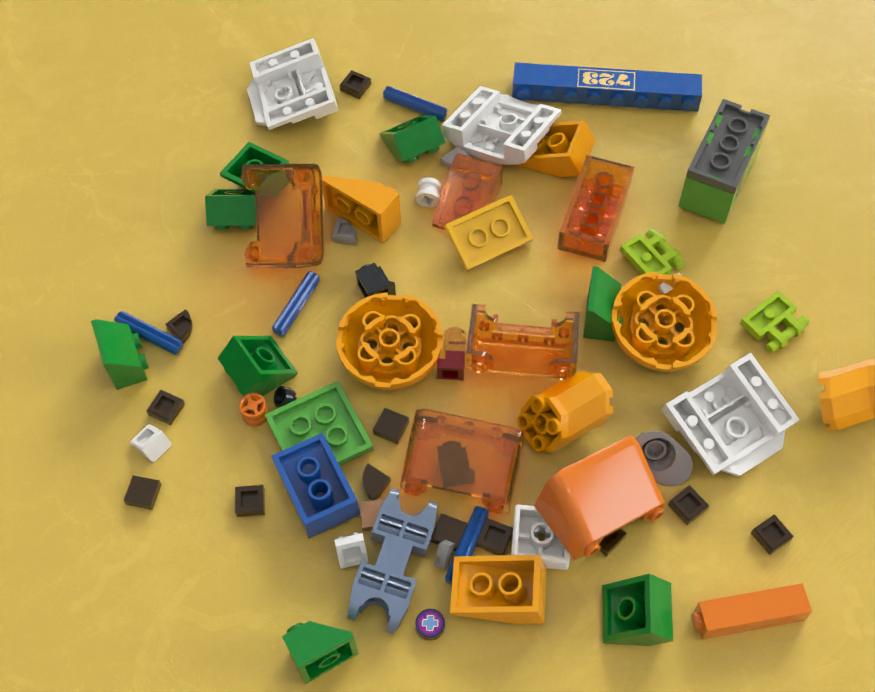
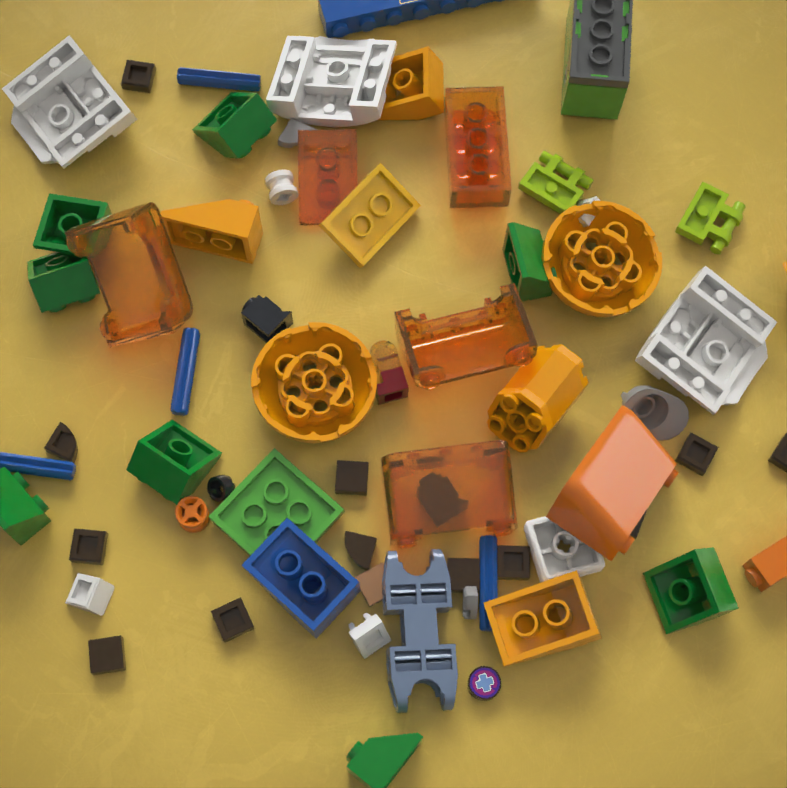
camera: 25 degrees left, 10 degrees up
(344, 233) = (204, 266): light grey tile -> none

